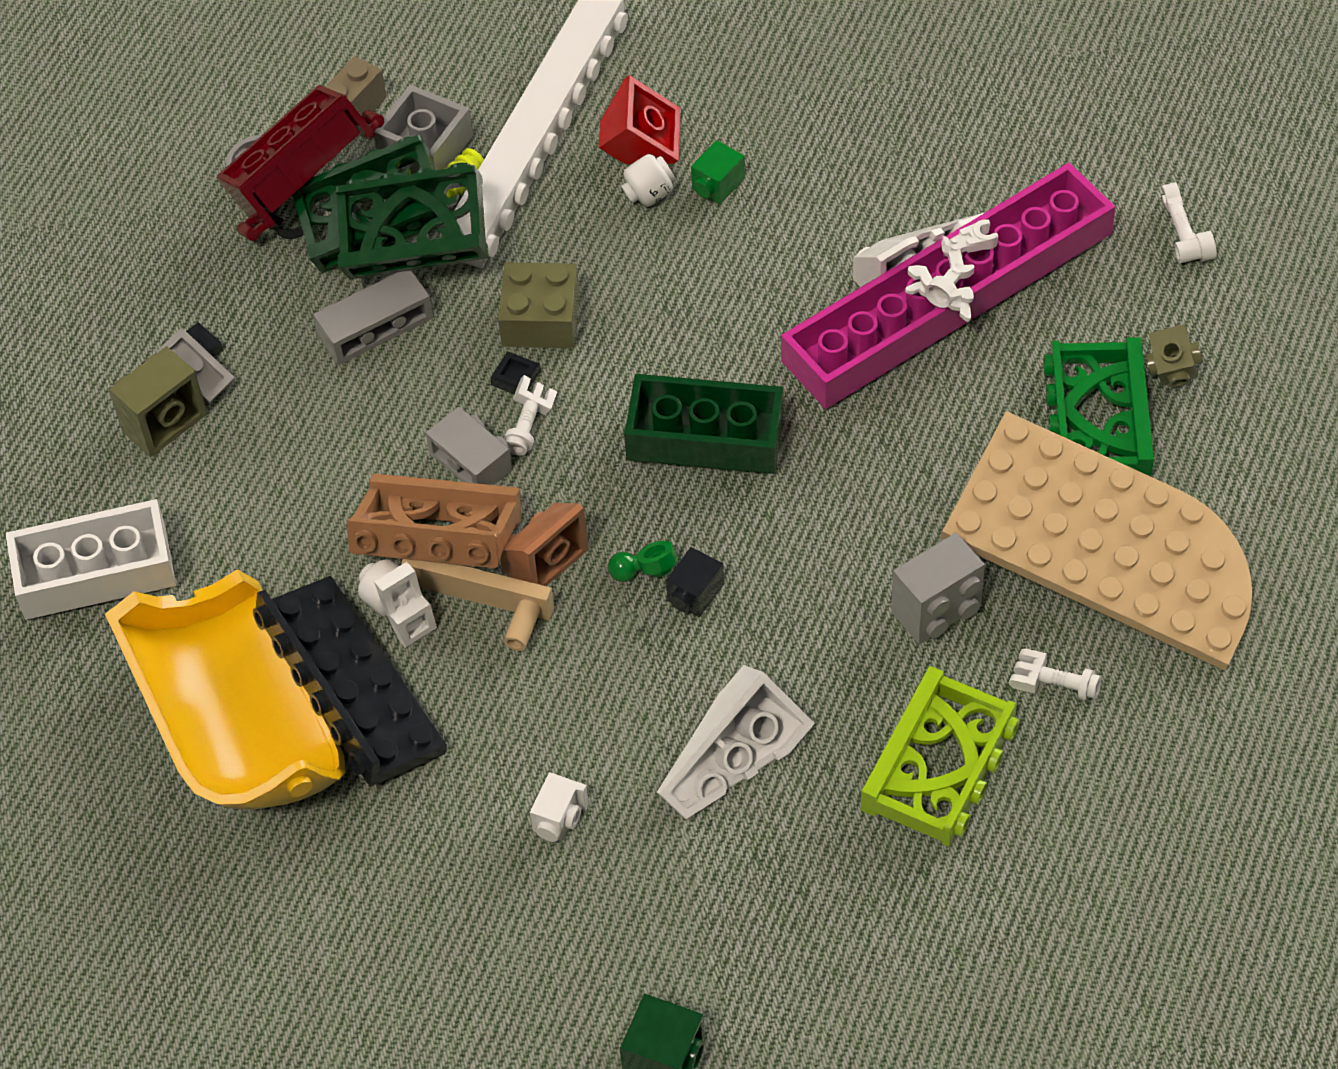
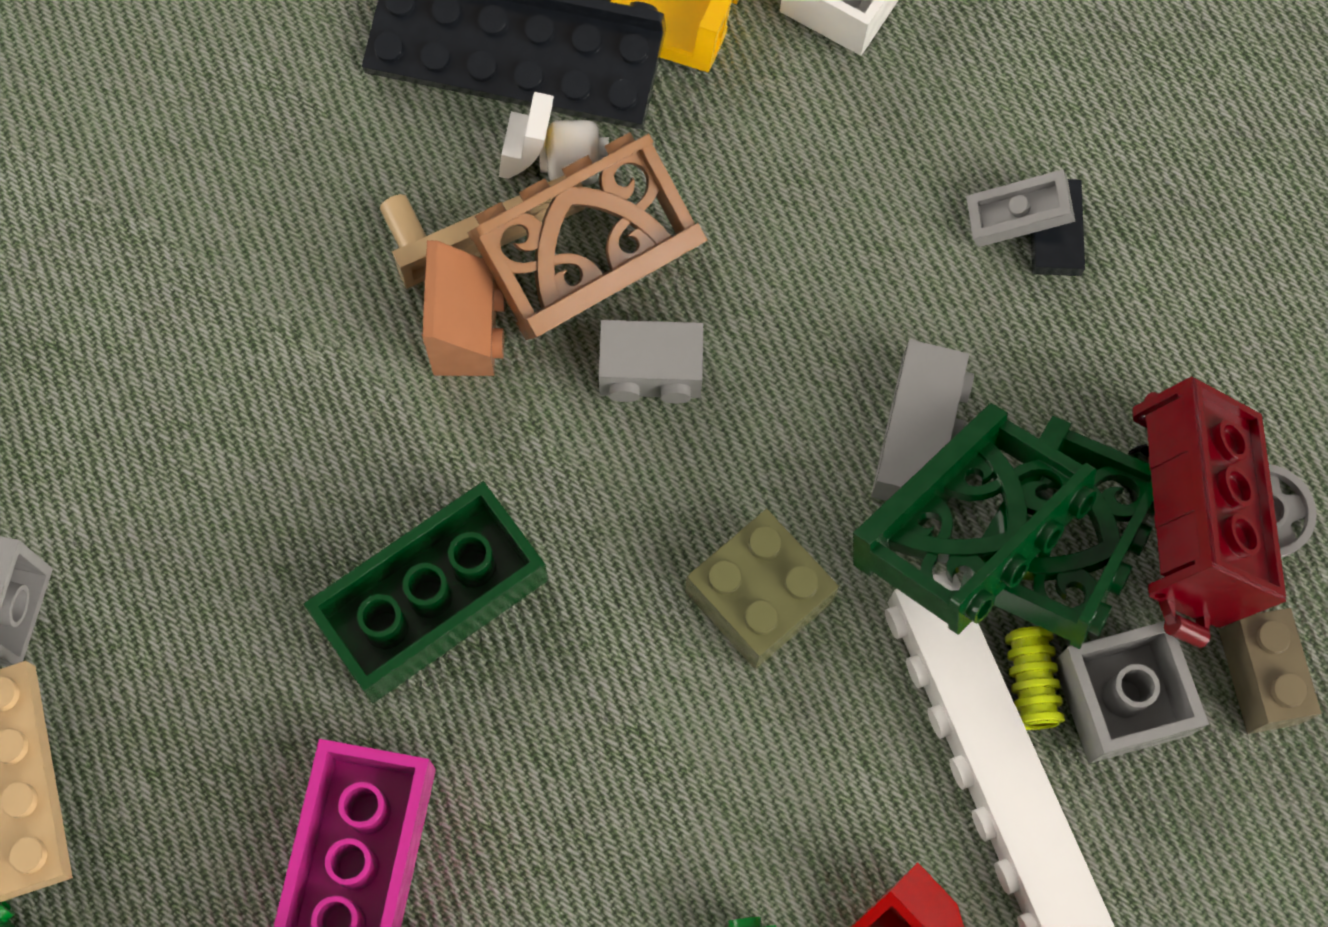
camera: 130 degrees right, 15 degrees up
(158, 401) = (1002, 126): olive brick -> none
(511, 371) = (707, 499): black tile -> none
(519, 438) = (617, 418): white hinge -> none
(558, 807) = (194, 90): white brick -> none
(648, 180) = (817, 874): white head -> none
(653, 559) = (371, 380): green plate -> none
(694, 582) = (274, 411): black brick -> none
(737, 737) = (91, 294): white wedge -> none

